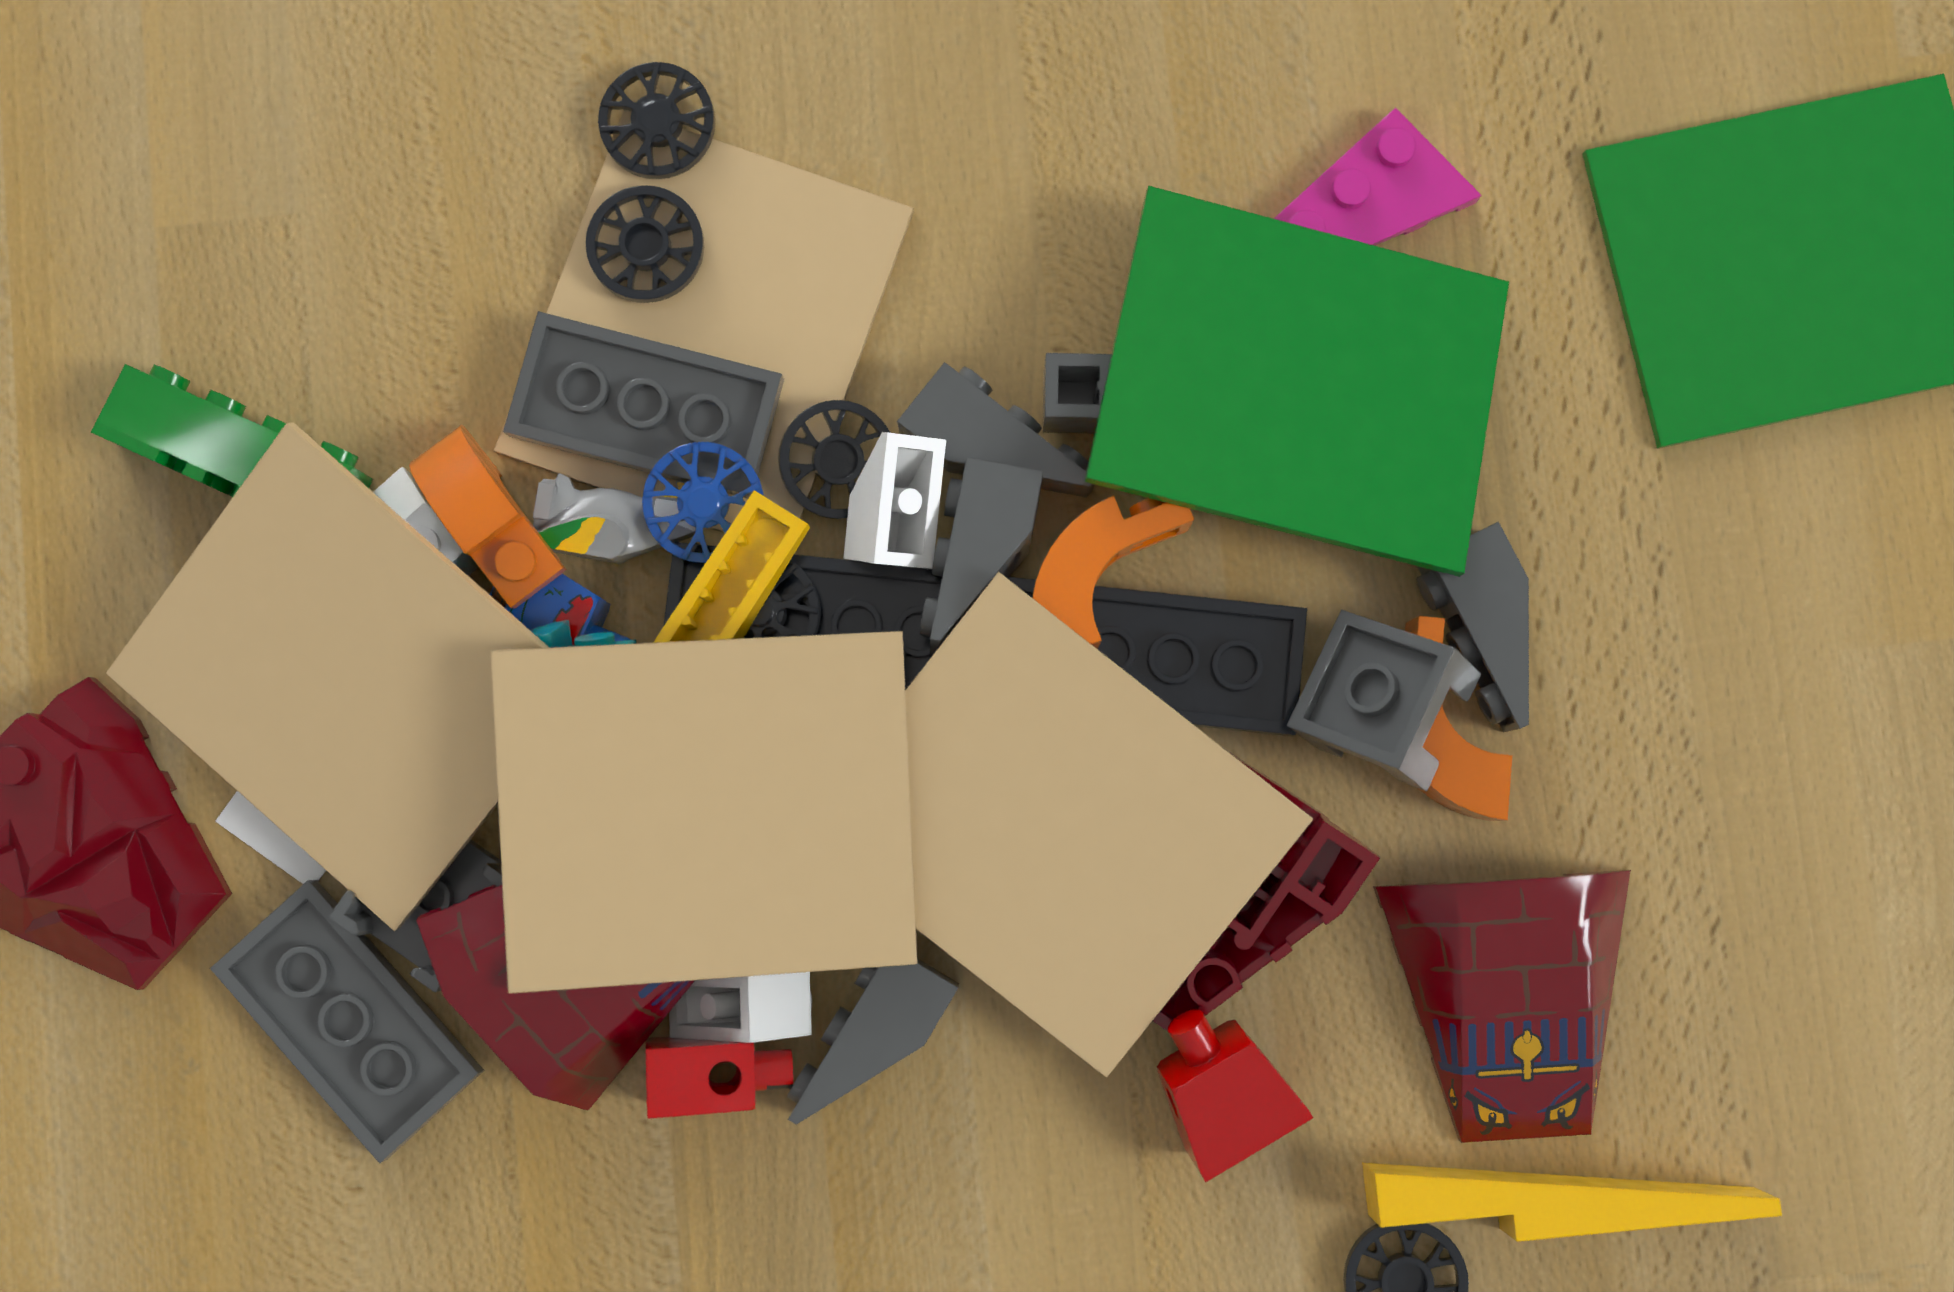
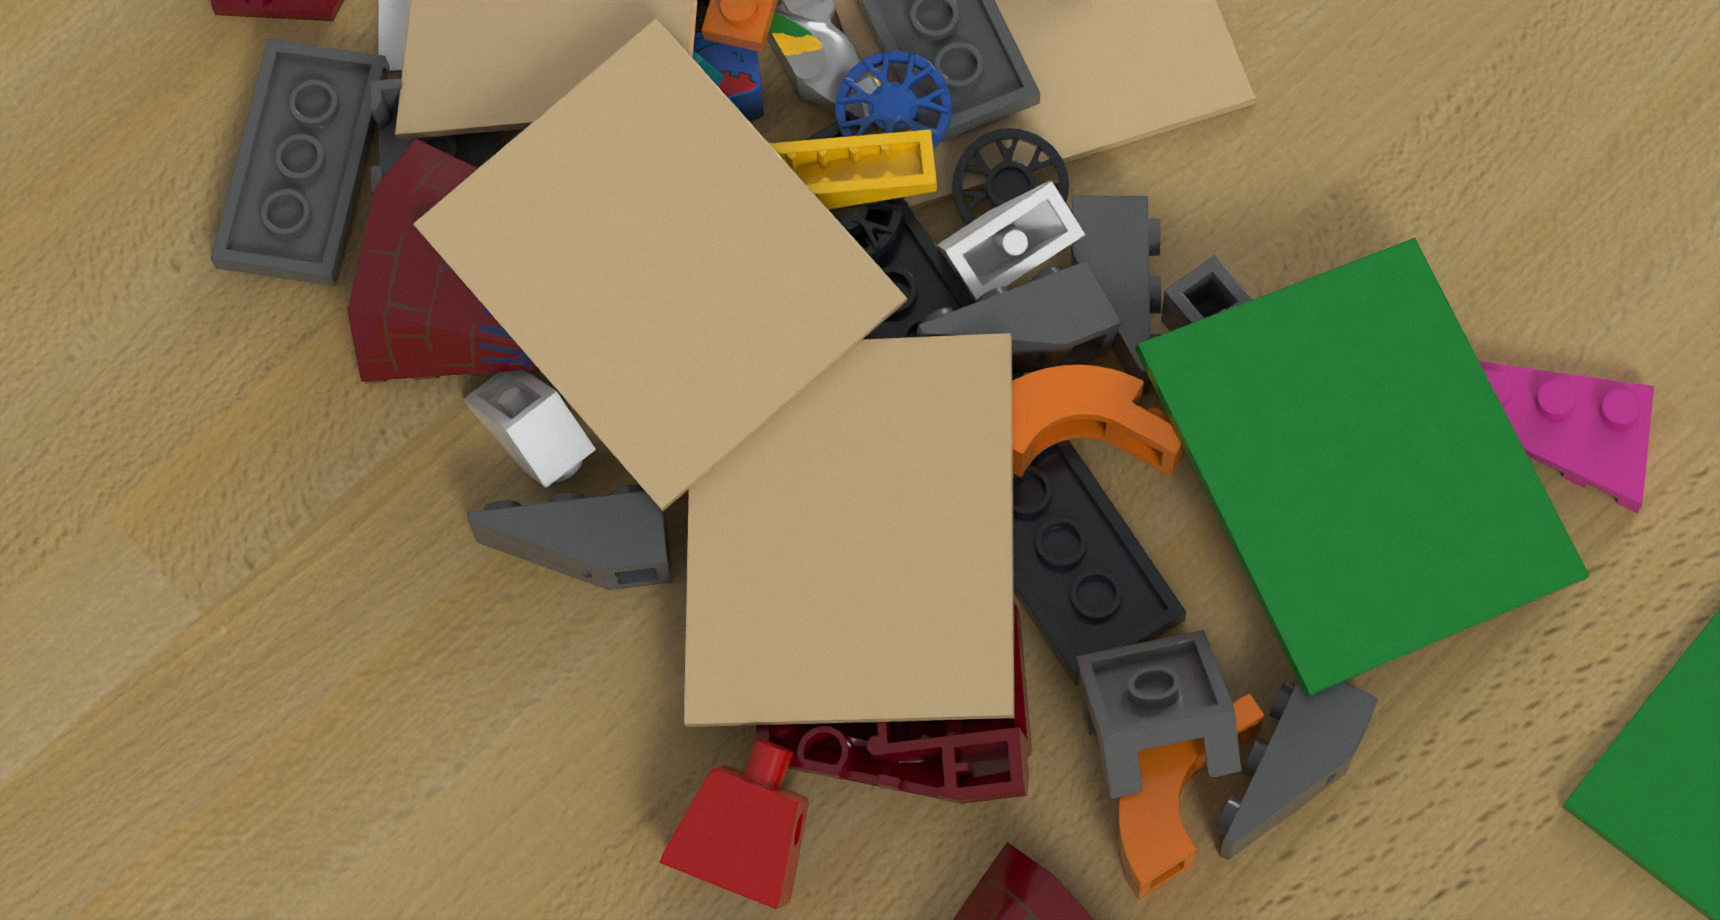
camera: 55 degrees right, 15 degrees down
(681, 1082) = (444, 412): red torso -> none

